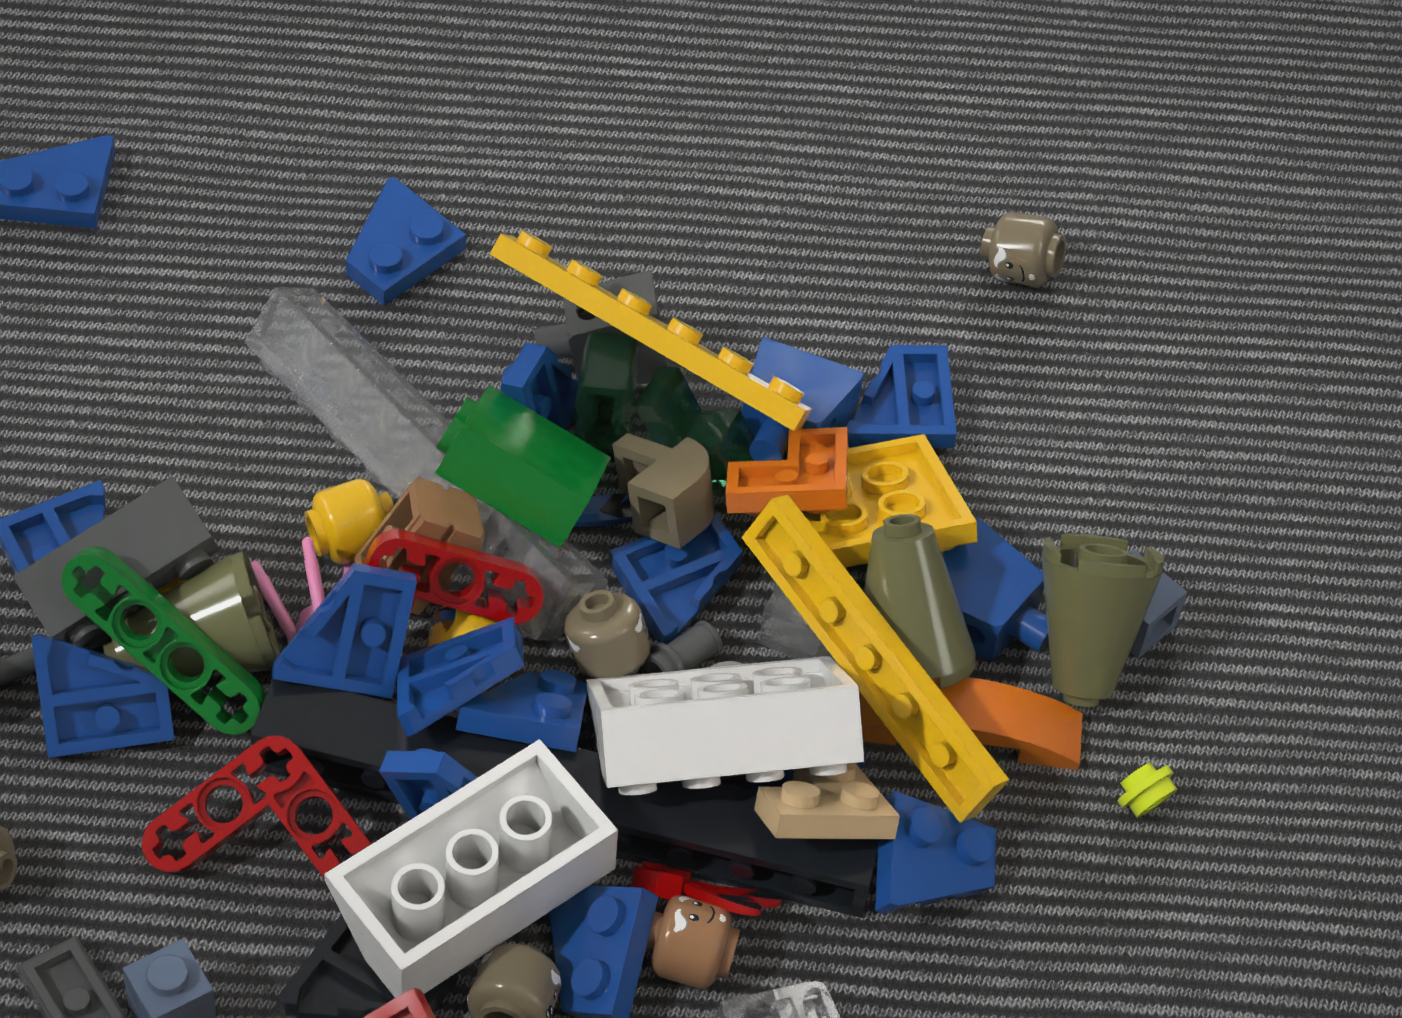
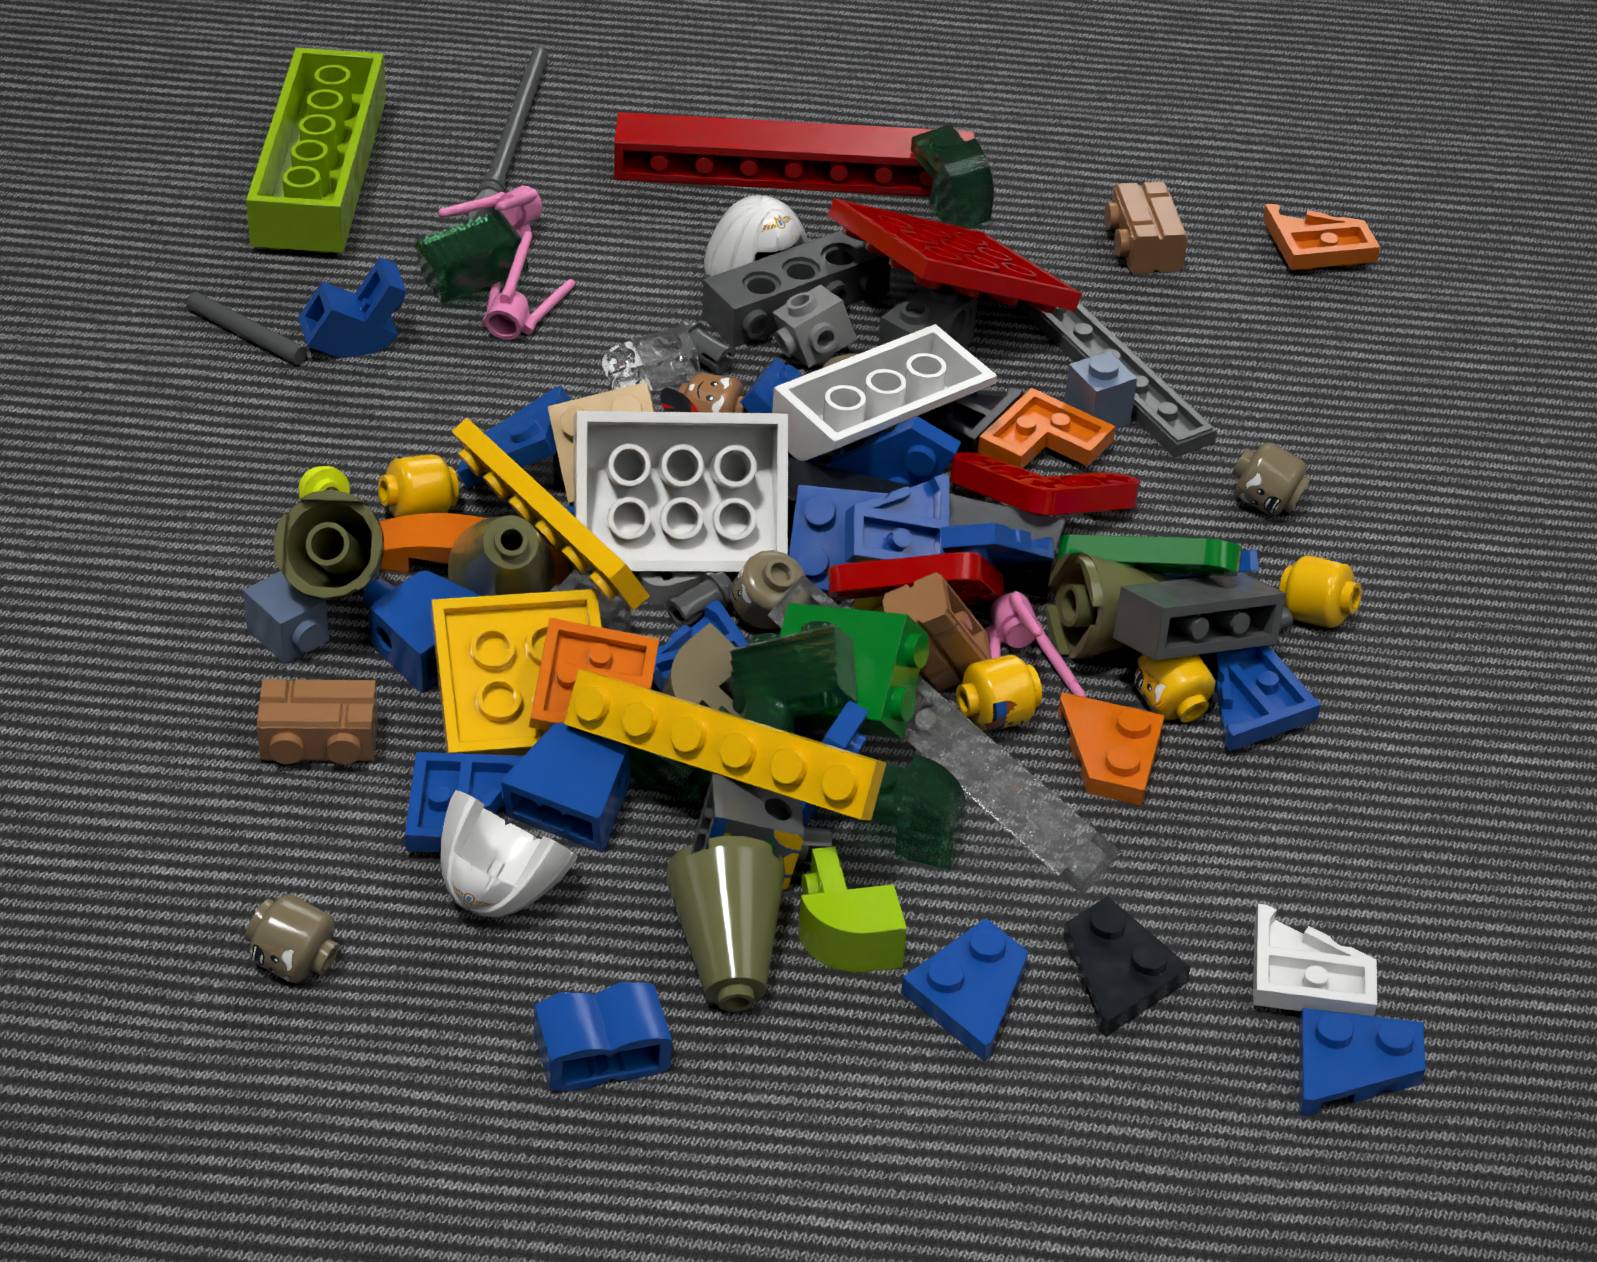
camera: 175 degrees left, 10 degrees down
(79, 249) = (1309, 970): none -> white wing
(234, 493) = (1112, 746): none -> orange wing
(253, 259) = (1121, 963): none -> black wing
(259, 957) = (1045, 422): none -> orange plate
(451, 366) = (926, 807): none -> clear green brick
(501, 287) = (852, 926): none -> lime brick
(580, 419) = (804, 669): none -> clear green brick
(629, 240) = (729, 915): none -> olive cone
(733, 172) = (602, 1036): none -> blue brick
(846, 307) = (494, 865): none -> white hair
(1038, 791) = (418, 485): none -> yellow head
(1064, 473) = (317, 720): none -> medium nougat brick

